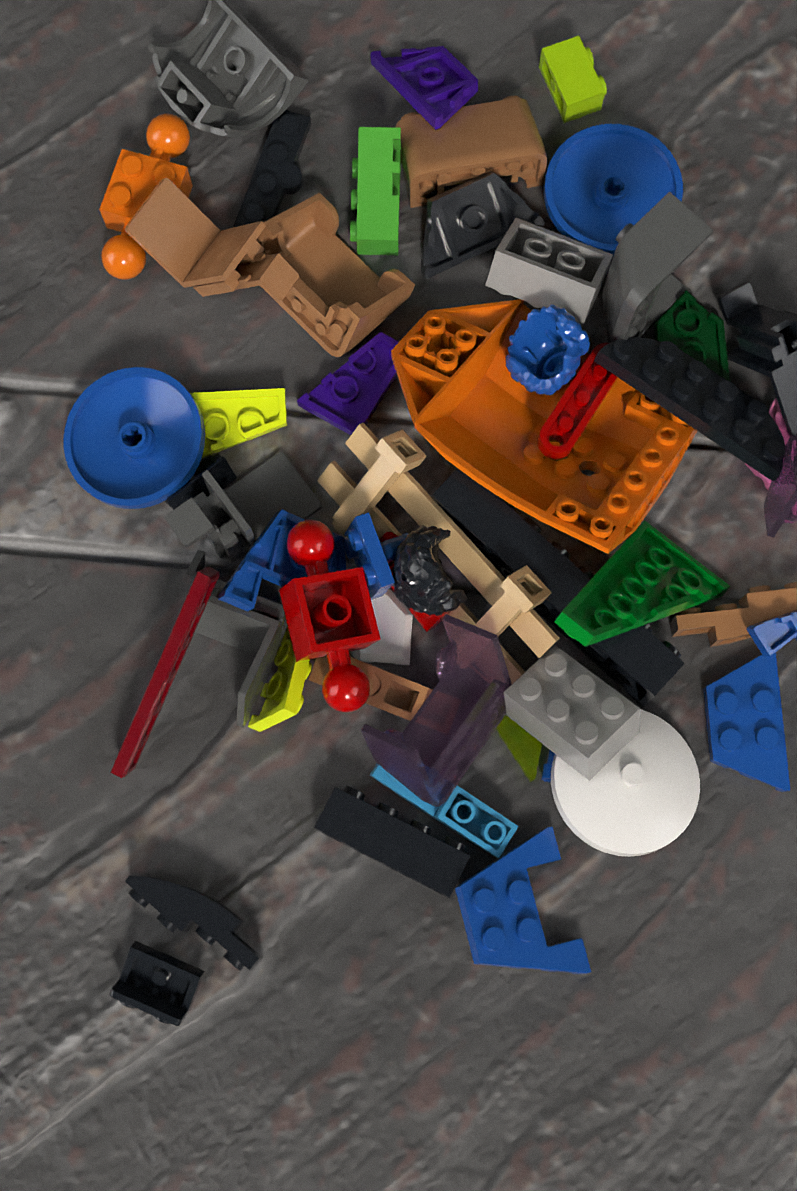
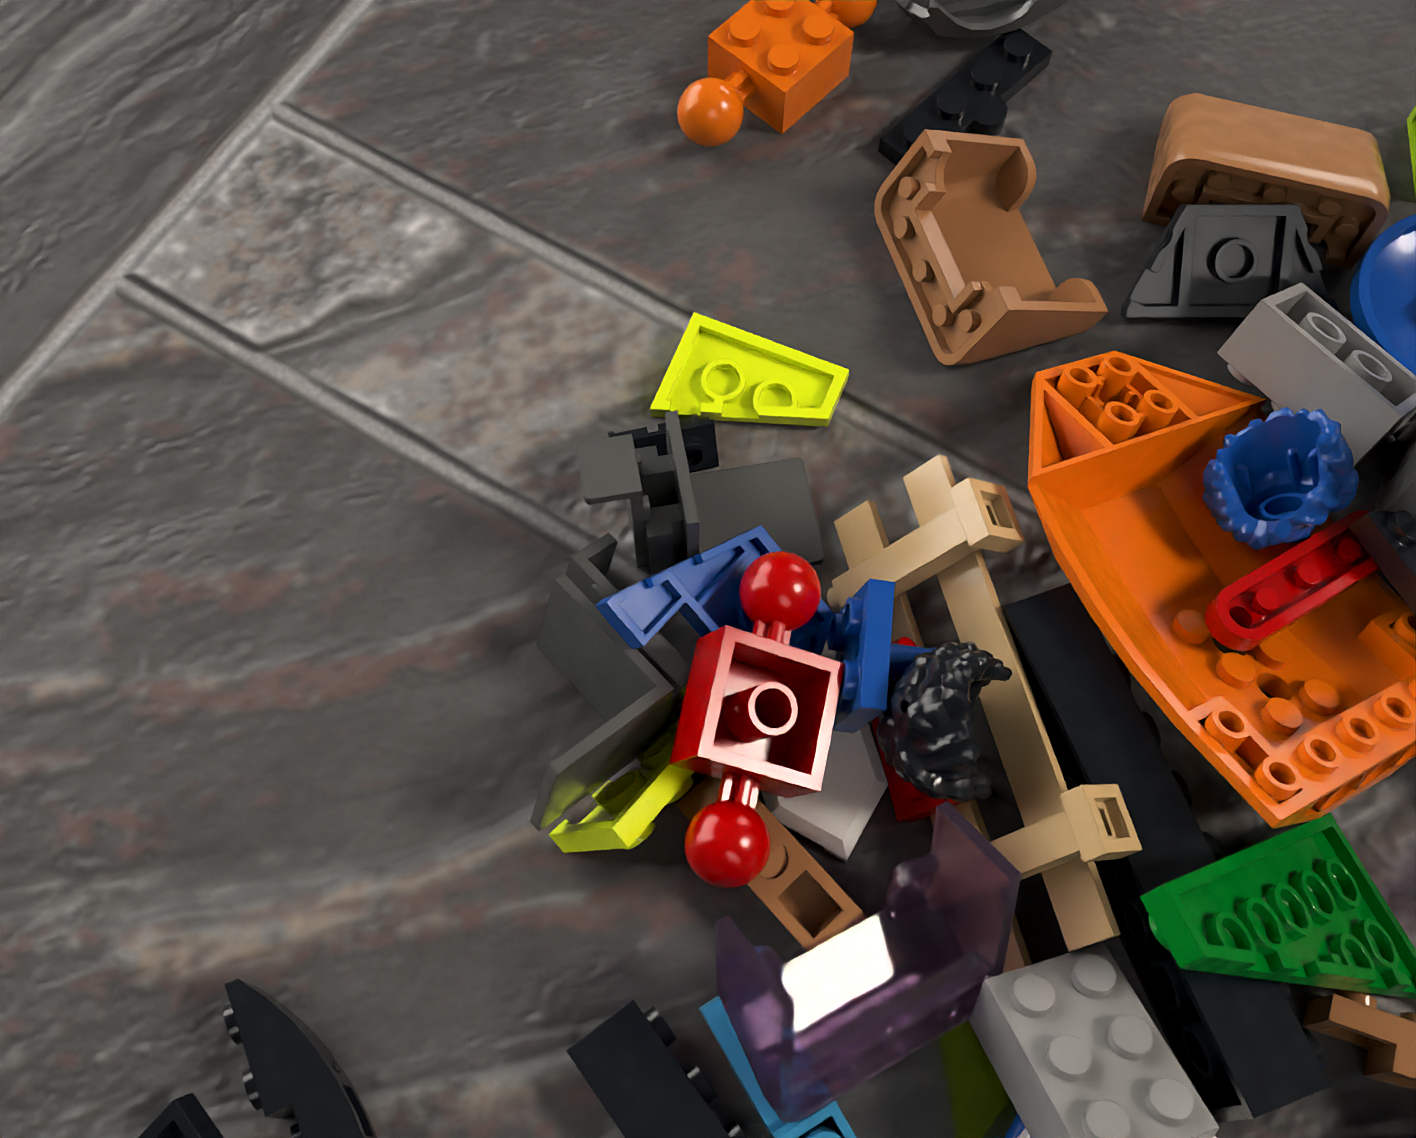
camera: 25 degrees right, 10 degrees down
(111, 420) = (600, 342): blue dish -> none
(165, 671) = (462, 682): dark red tile -> none
(200, 252) = (813, 139): medium nougat piece -> none
(355, 388) = (953, 415): dark purple wing -> none
(377, 191) = (1108, 169): bright green wedge -> none
(429, 81) = (1244, 67): dark purple wing -> none

